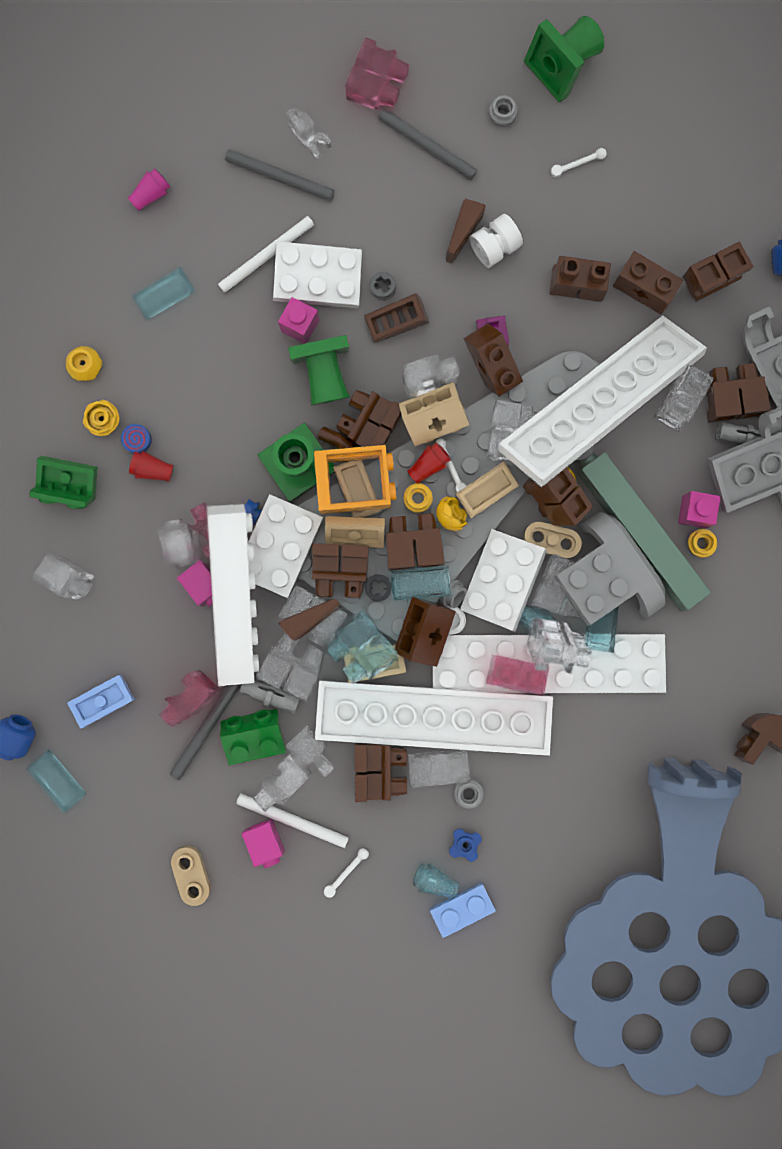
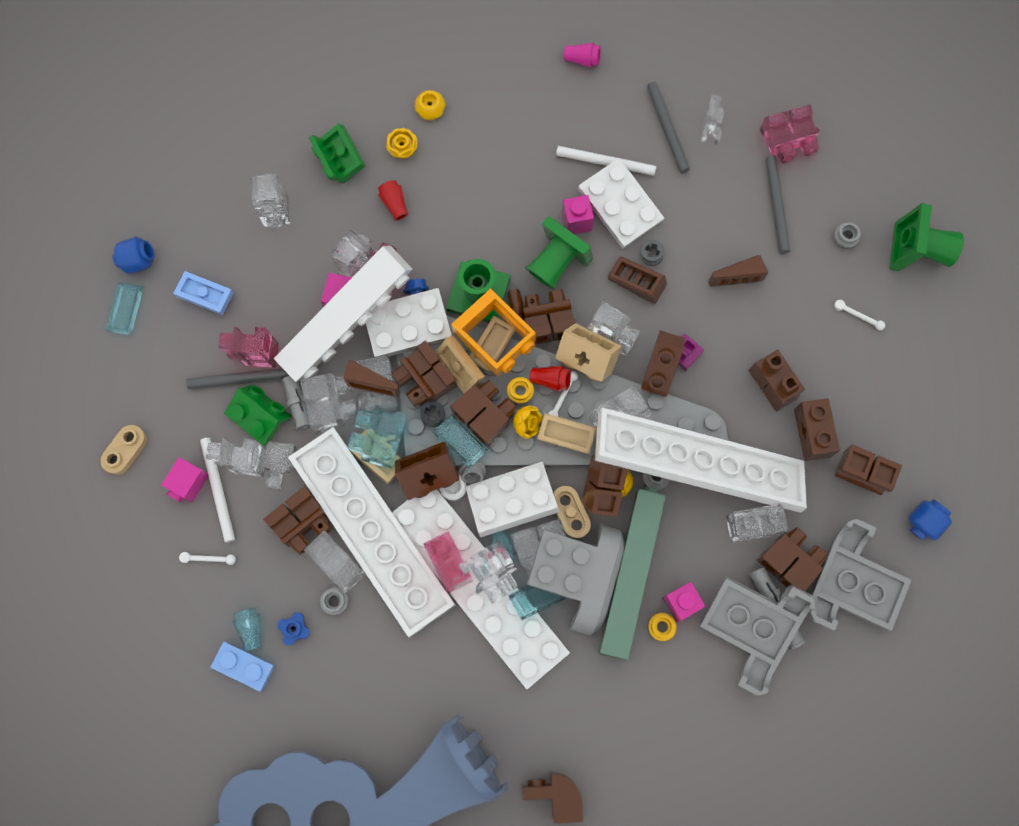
camera: 55 degrees right, 10 degrees down
(136, 438) = (406, 176): blue tile -> none
(163, 293) = (522, 117): clear light blue tile -> none
(500, 238) = (751, 300): white wheel -> none

